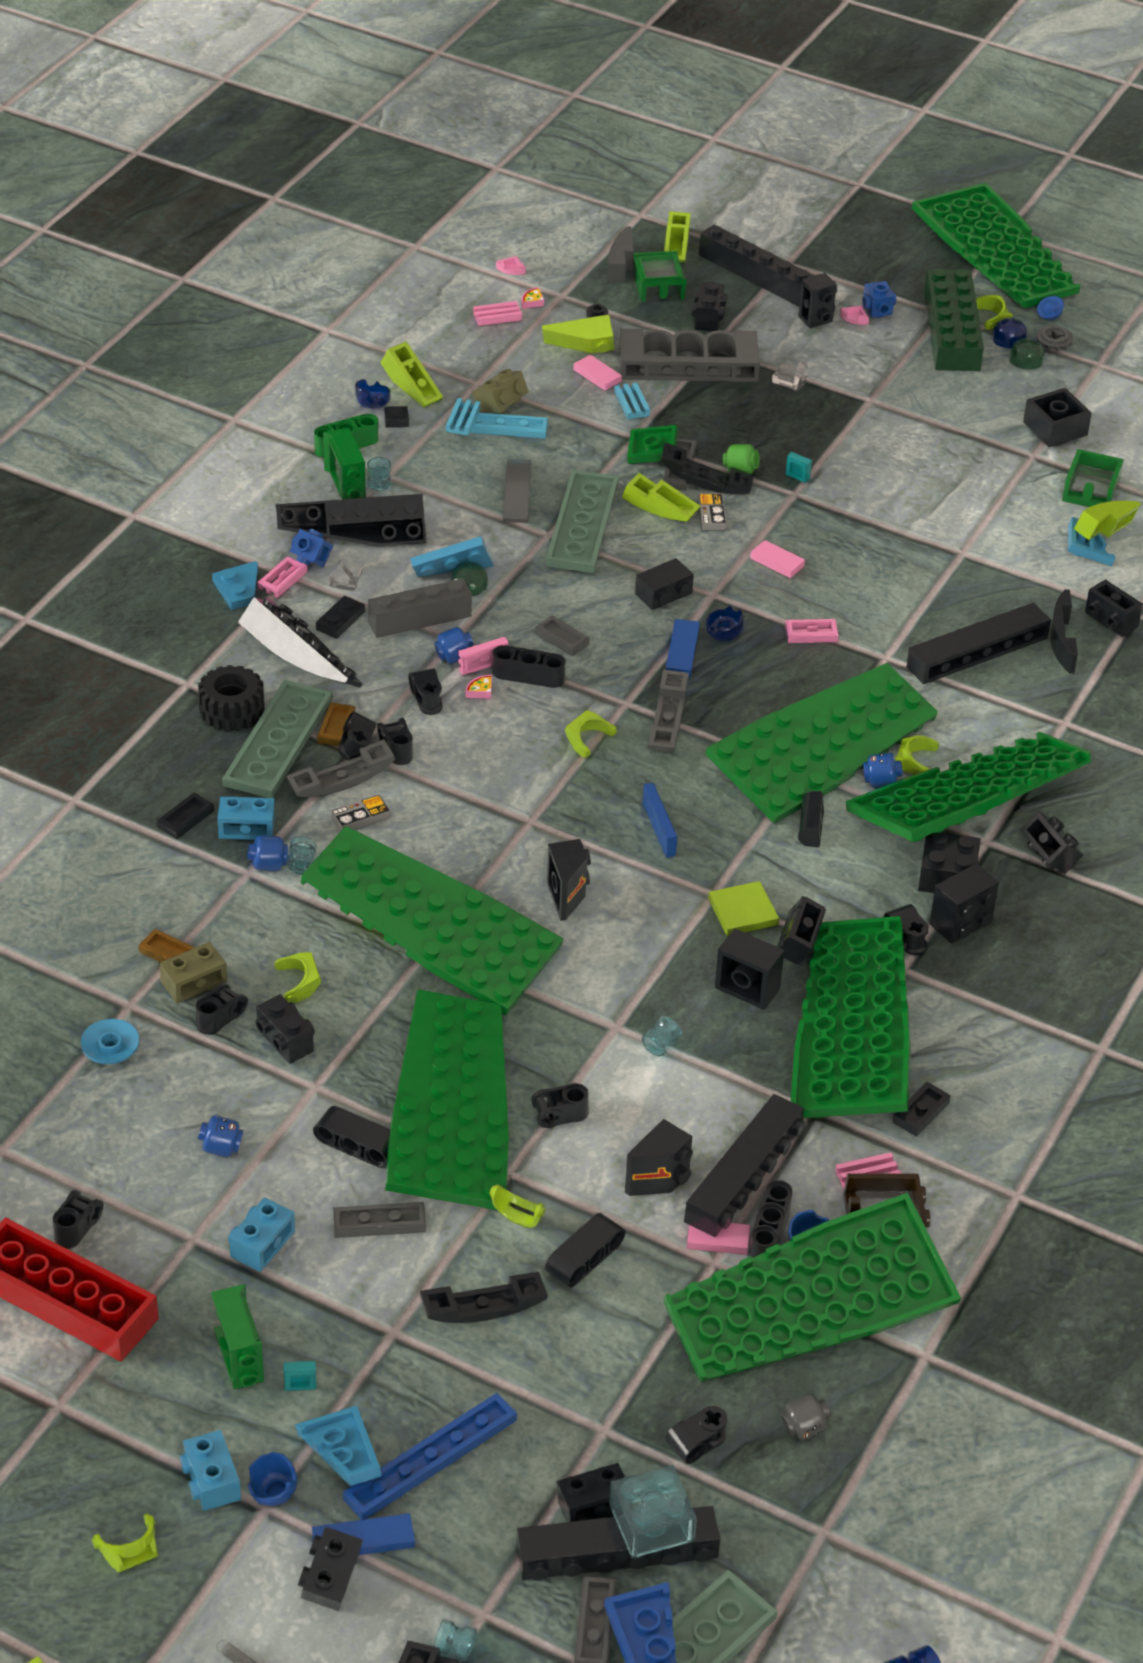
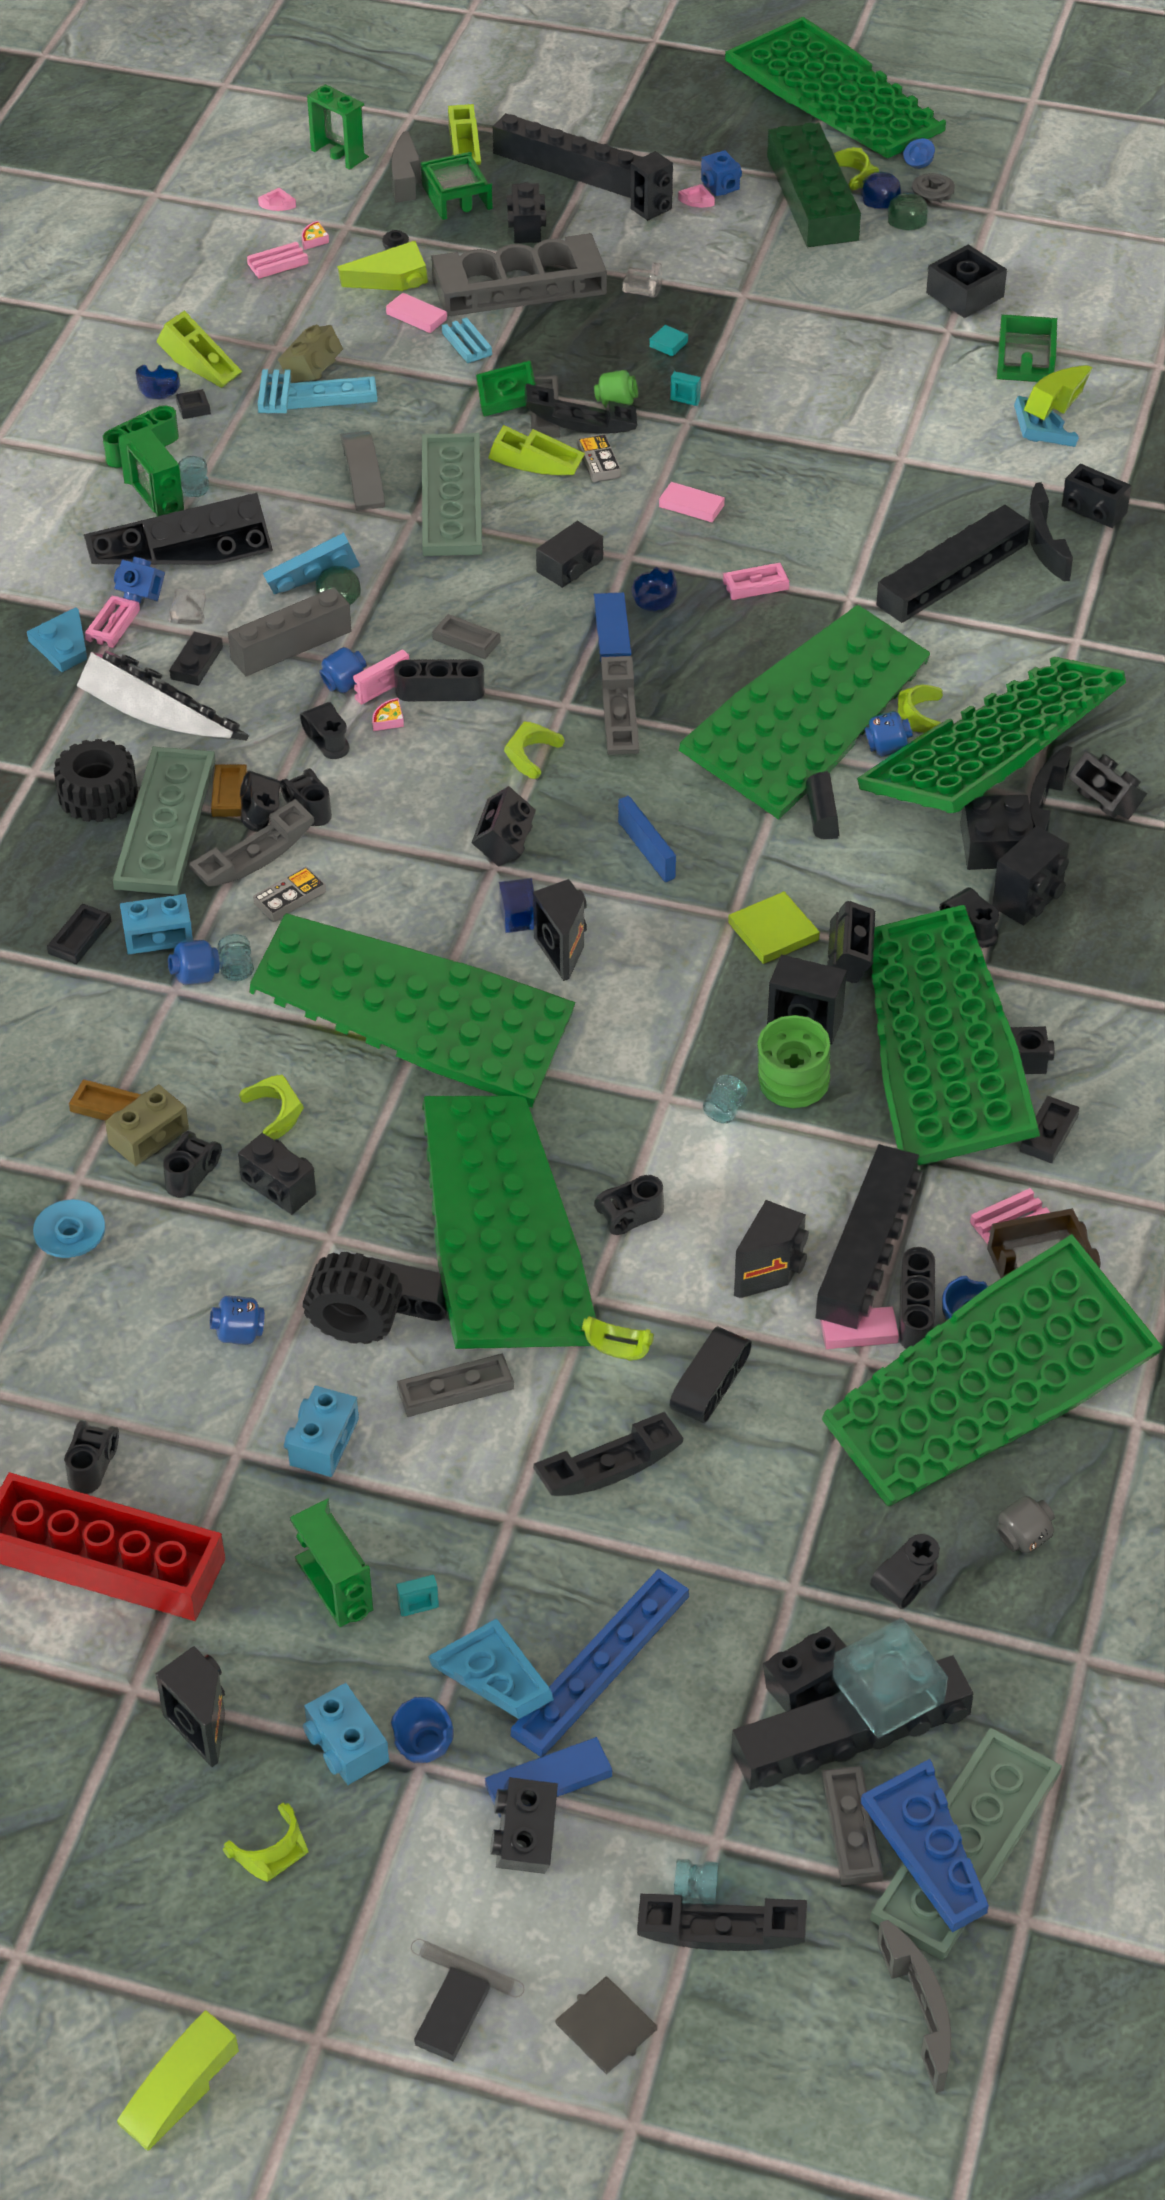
camera: 10 degrees left, 5 degrees up
(100, 1421) = (194, 1701): none -> black slope
(313, 1134) = (352, 1297): none -> black tyre
(537, 853) = (517, 904): none -> clear blue brick
(545, 790) = (504, 826): none -> black brick
(573, 209) = (337, 121): none -> green window
(724, 1016) = (794, 1061): none -> bright green wheel
(797, 426) = (668, 340): none -> teal tile
(925, 1042) = (1034, 1048): none -> black brick
(1005, 827) = (1051, 776): none -> black slope

